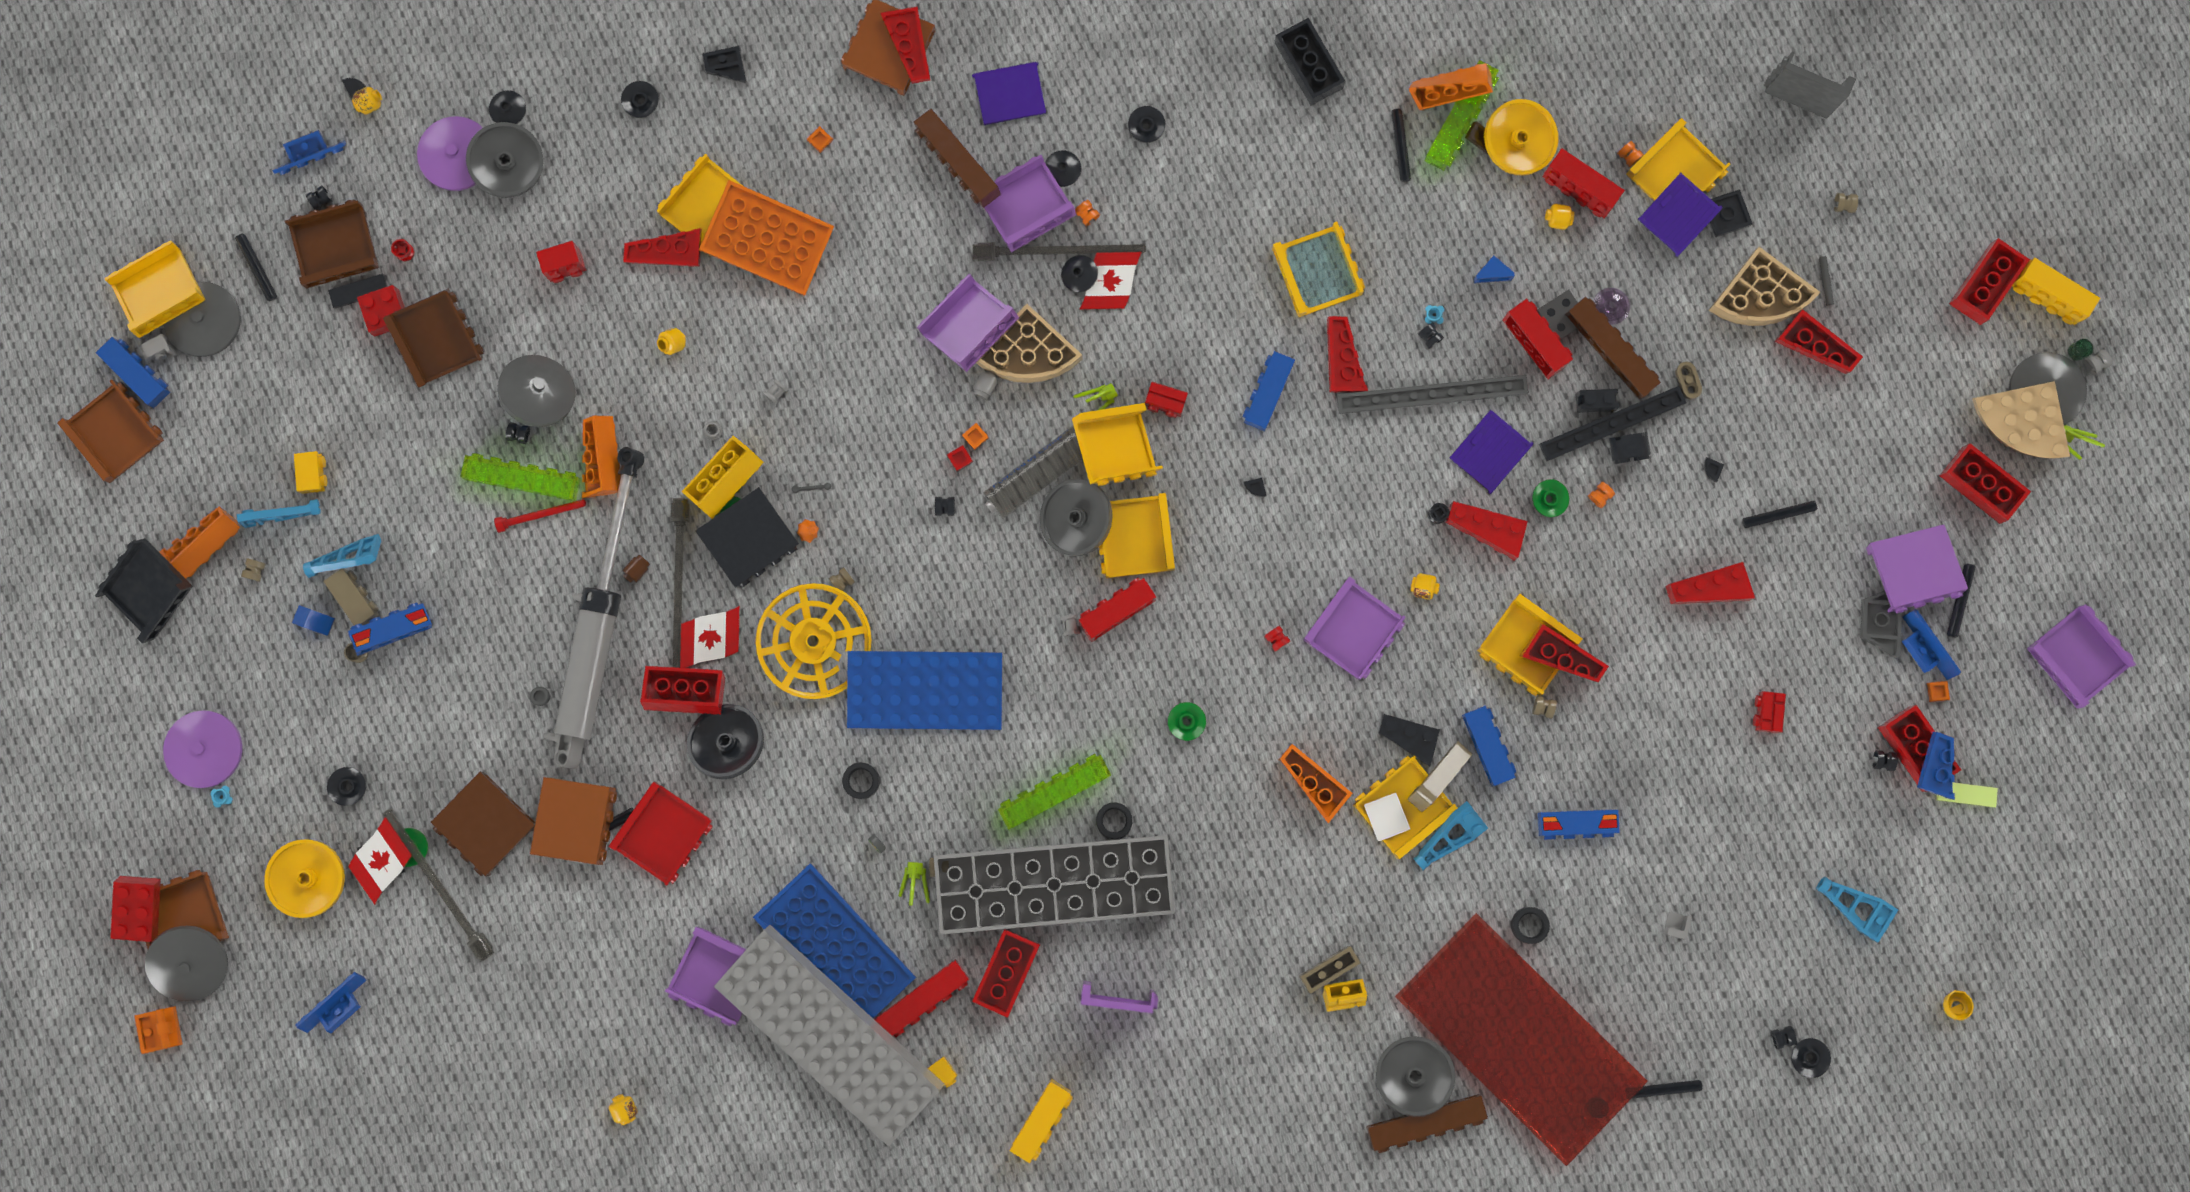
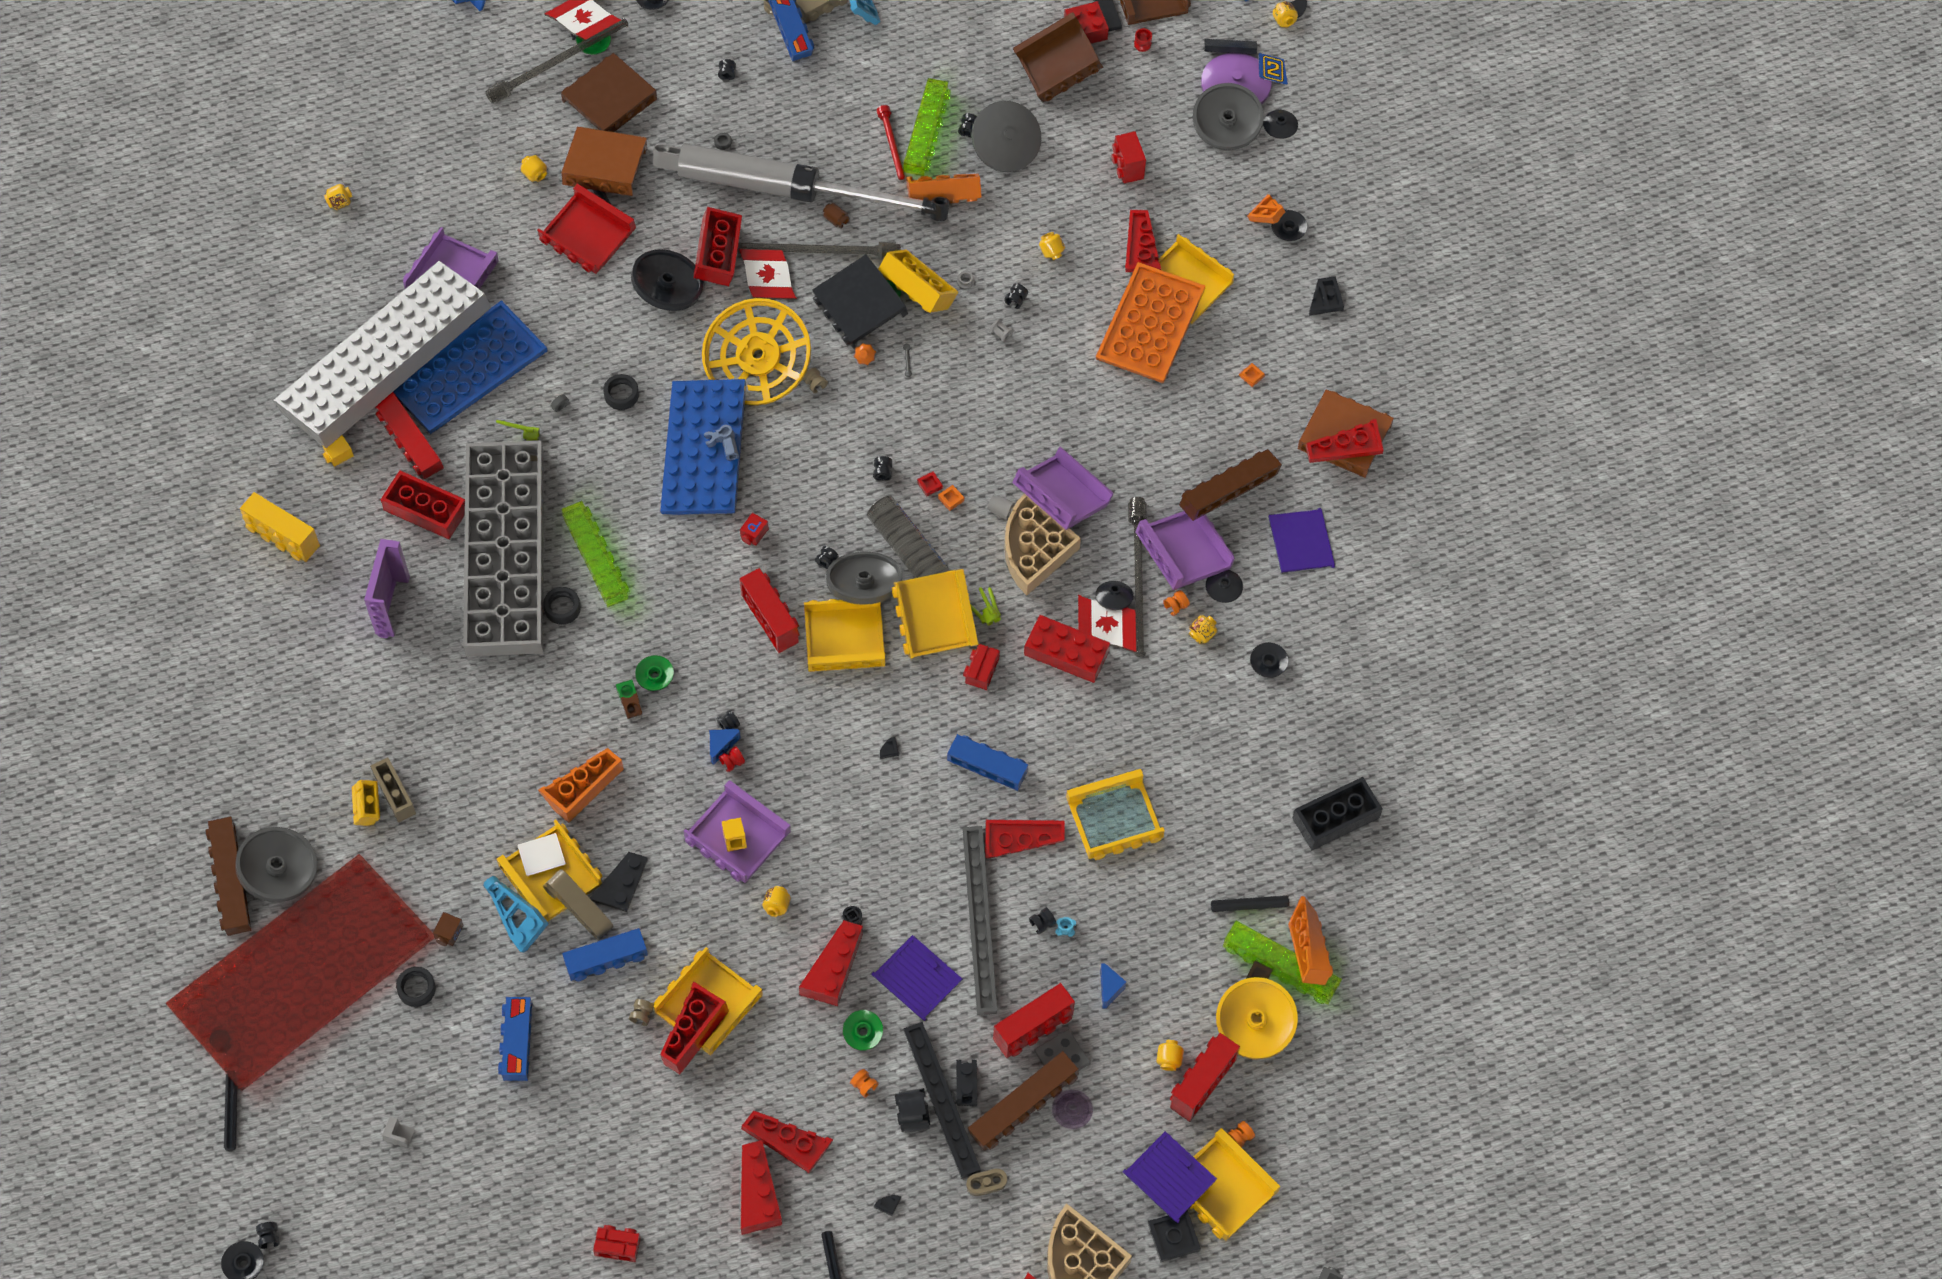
camera: 90 degrees right, 20 degrees down
(409, 158) = (1230, 46): none -> black tile
(438, 115) = (1272, 69): none -> sticker
(447, 697) = (727, 69): none -> black wheel
(582, 898) = (534, 168): none -> yellow head
(623, 120) = (1266, 211): none -> orange wing
(732, 377) = (1017, 294): none -> black wheel
(919, 665) = (727, 436): none -> sand blue bar
(1021, 632) = (753, 529): none -> red brick
(1049, 557) = (826, 557): none -> black wheel
(1115, 187) = (1203, 629): none -> yellow head
(1143, 317) = (1066, 648): none -> red brick
(1216, 744) = (629, 699): none -> leg
(1236, 644) = (728, 721): none -> black wheel
(1260, 650) = (722, 741): none -> blue slope
(1360, 630) = (734, 834): none -> yellow brick
(1471, 900) = (447, 929): none -> reddish brown brick
(1662, 557) = (794, 1144): none -> red wing

